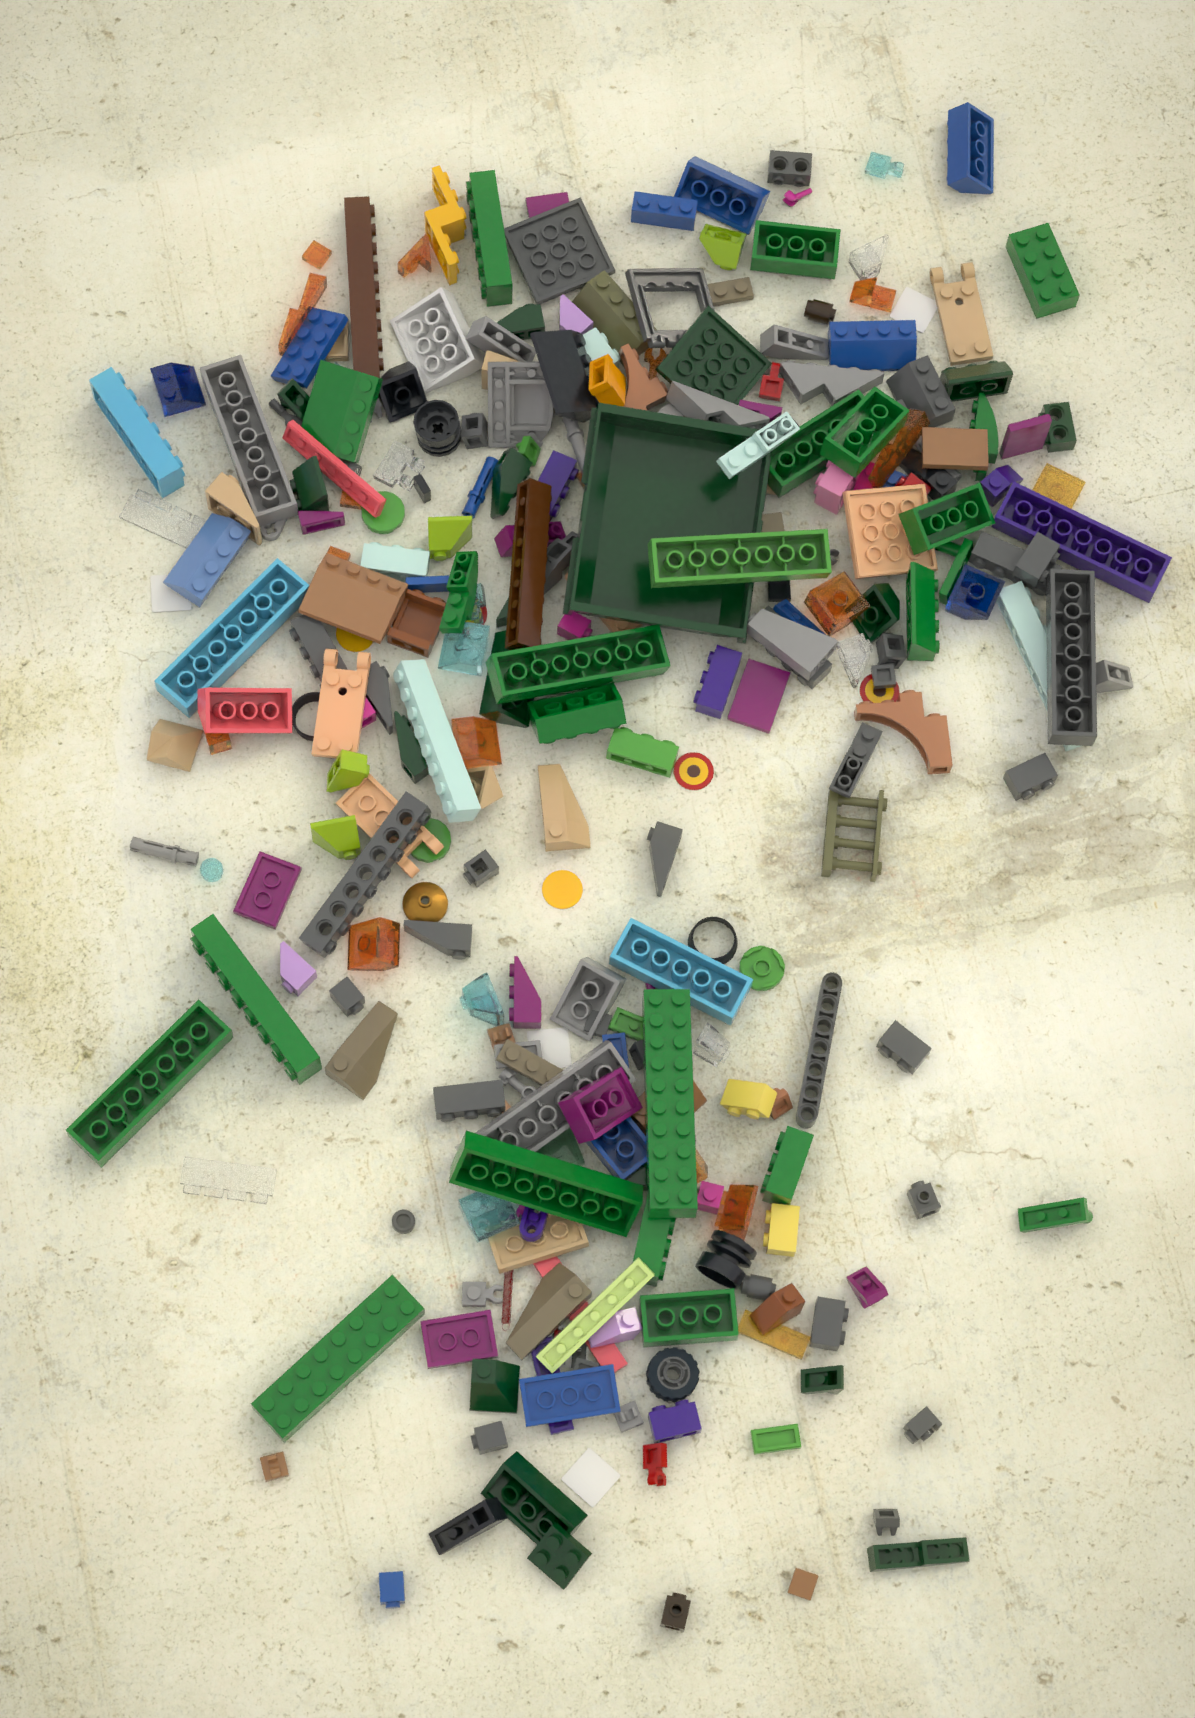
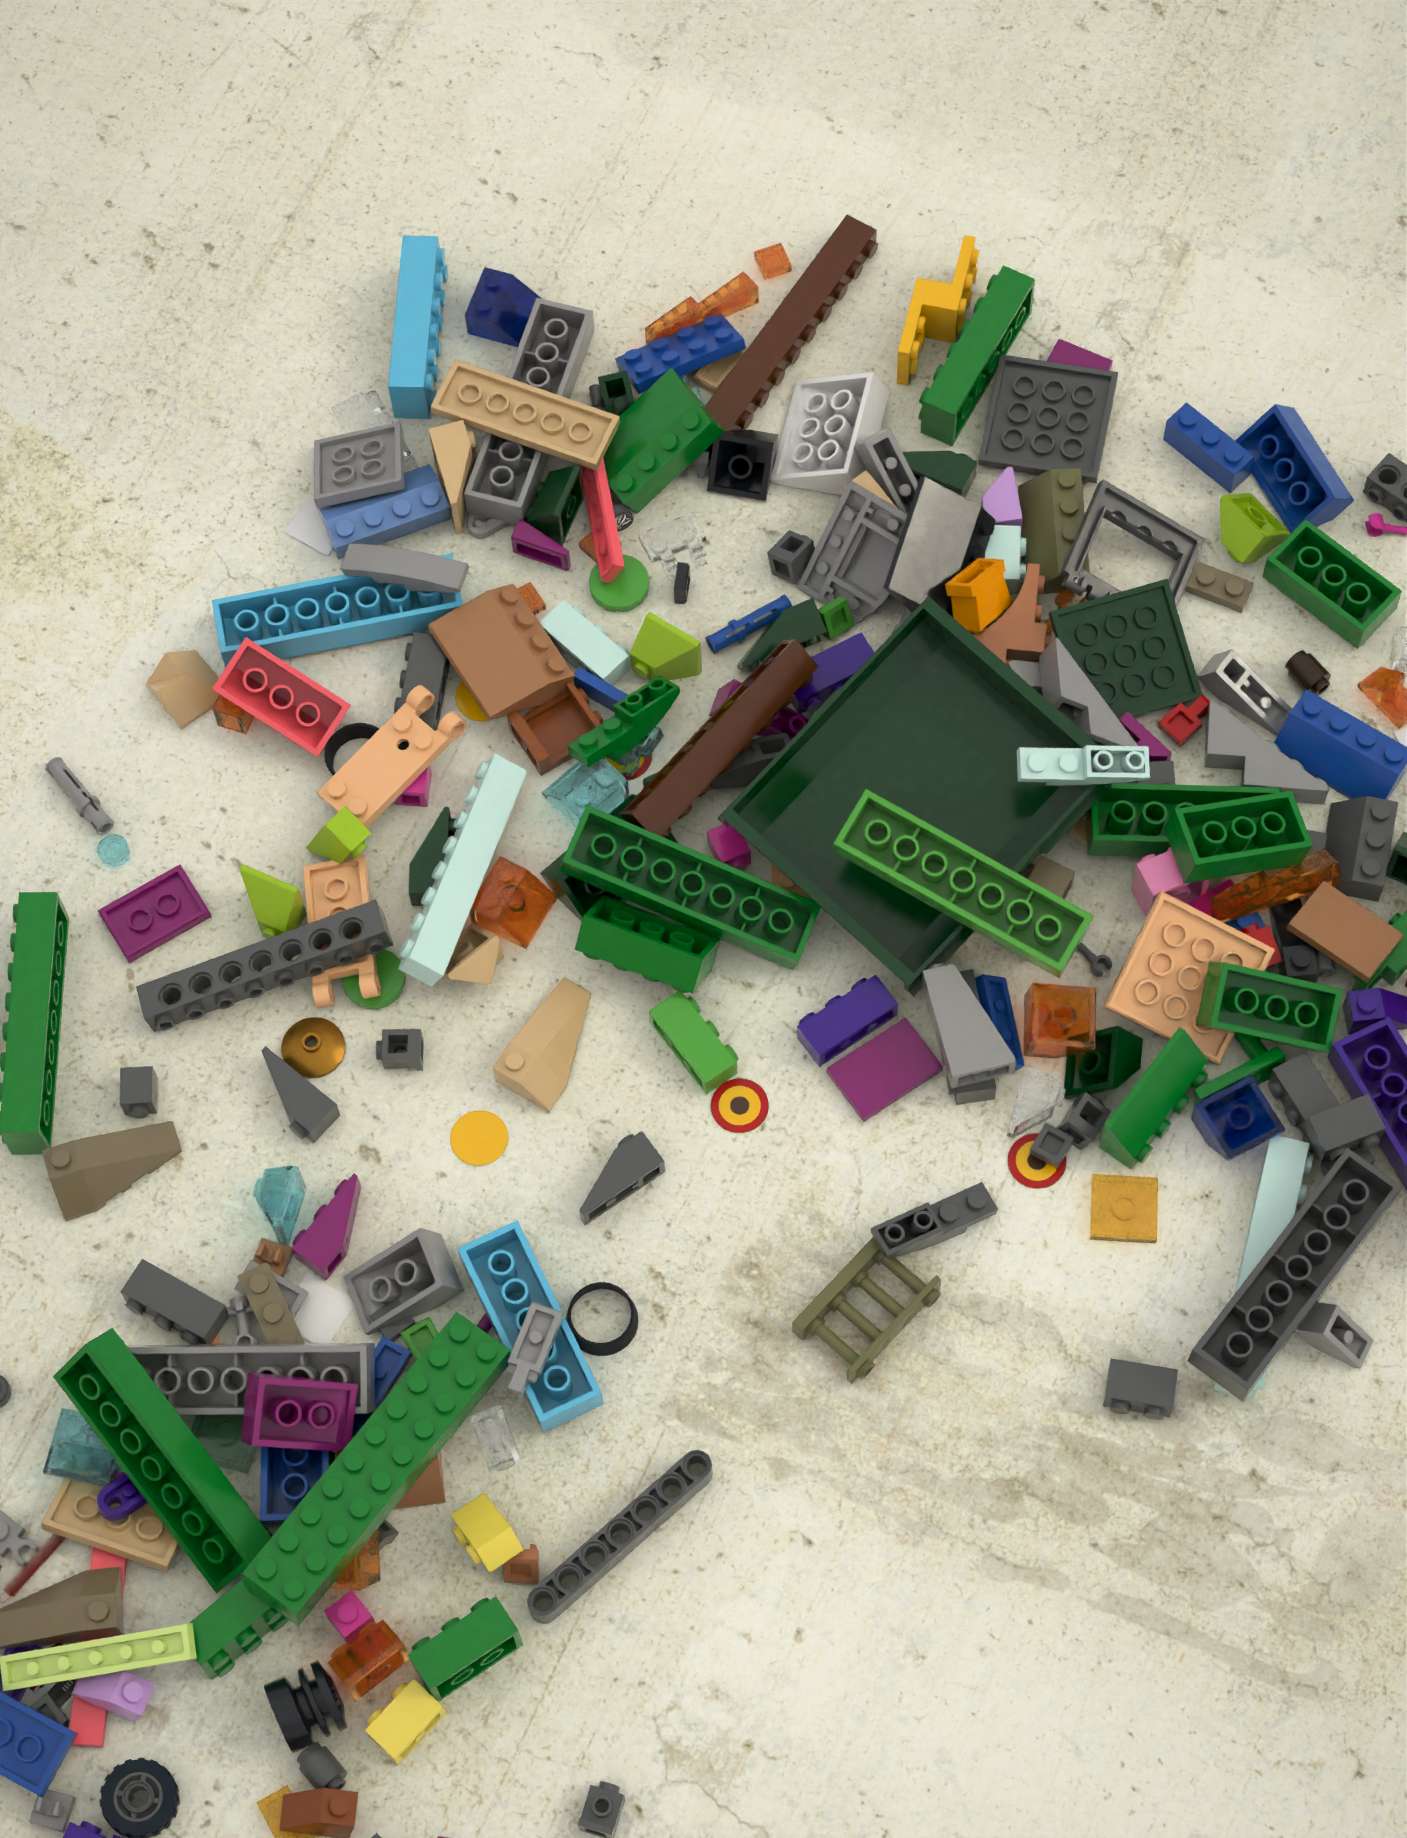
camera: 45 degrees right, 5 degrees down
(172, 540) = (359, 465): none -> light grey plate
(255, 444) = (525, 414): none -> tan plate
(260, 584) = (403, 566): none -> light grey slope
(294, 970) = (105, 1021): lavender slope -> none
(374, 945) = (215, 1054): clear orange slope -> none
(379, 694) = (450, 776): dark grey slope -> none
(416, 255) = (884, 326): clear orange slope -> none
(440, 418) = (748, 525): black wheel -> none
(688, 1317) = (209, 1743): green brick -> none
(698, 979) = (532, 1347): none -> light grey hinge
(763, 966) = (634, 1391): bright green tile -> none
(779, 591) = (1005, 964): black tile -> none
(903, 1047) = (724, 1607): dark grey brick -> none
(907, 717) = (1043, 1213): nougat arch -> none
(946, 685) = (1124, 1208): none -> clear yellow tile

